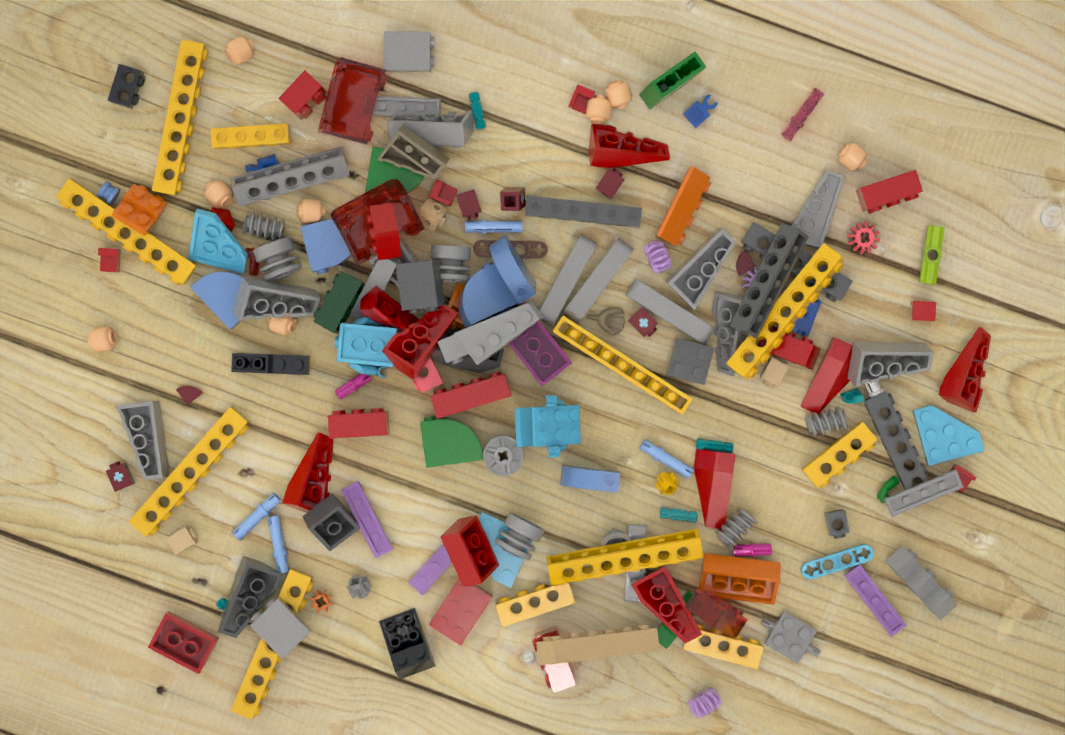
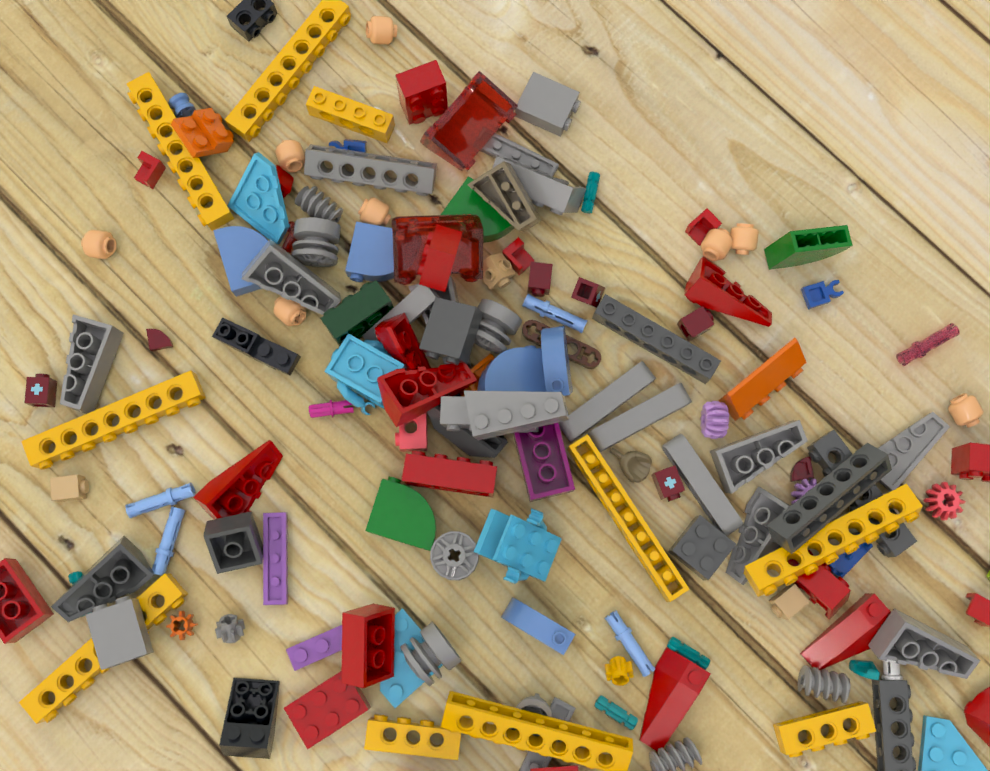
camera: 20 degrees right, 10 degrees down
(358, 423) = (315, 449): red brick -> none

